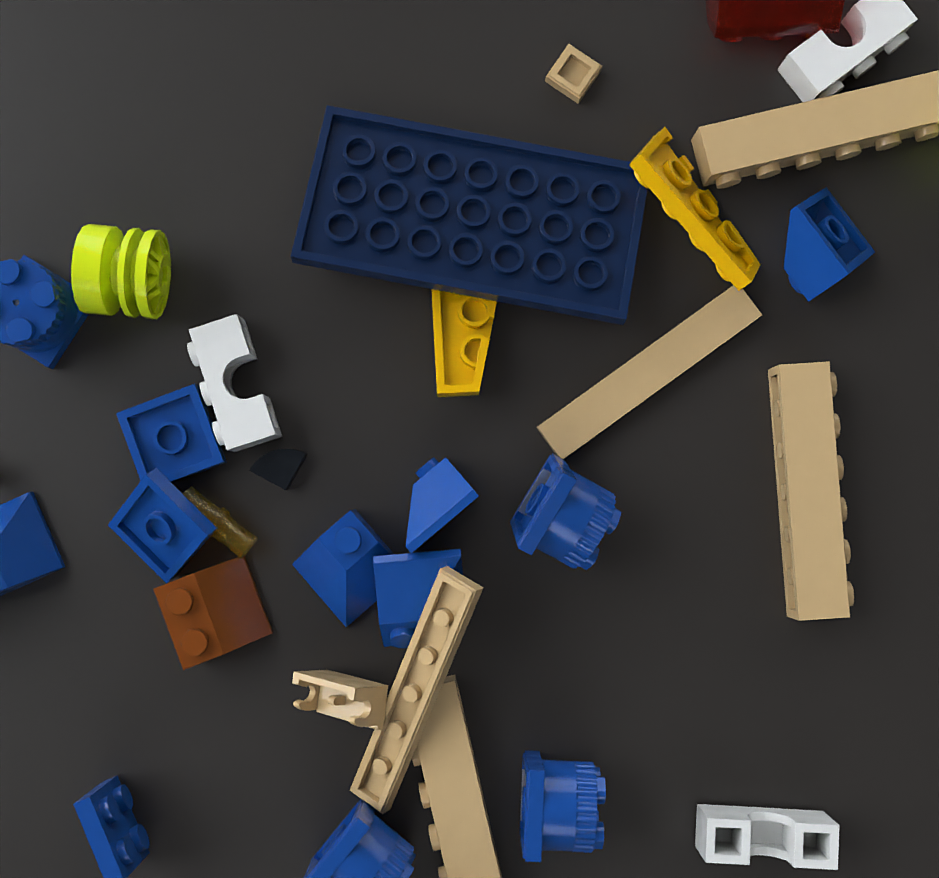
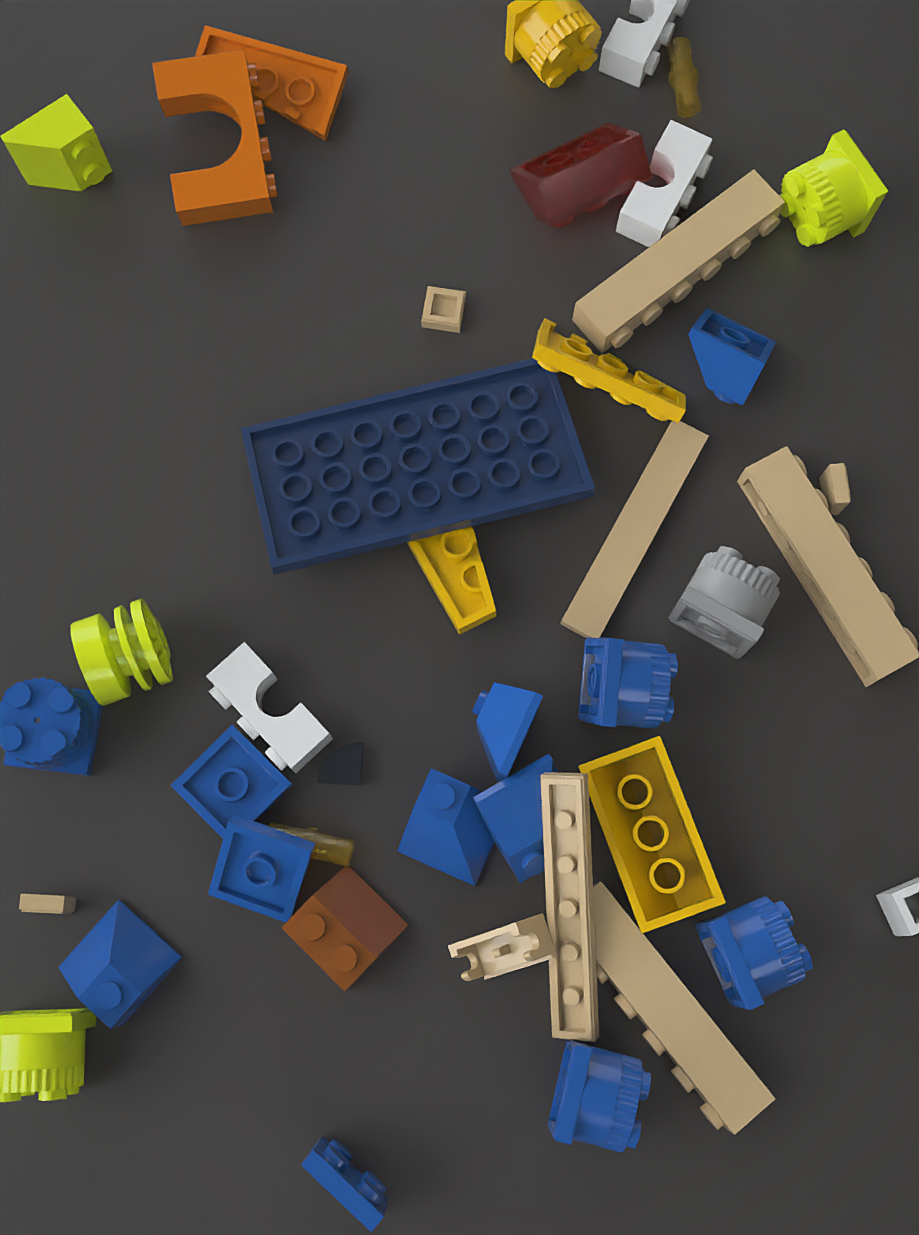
camera: 25 degrees left, 10 degrees down
(519, 661) = (651, 835): none -> yellow slope
(697, 483) = (727, 601): none -> light grey piece
(855, 421) = (835, 487): none -> tan tile

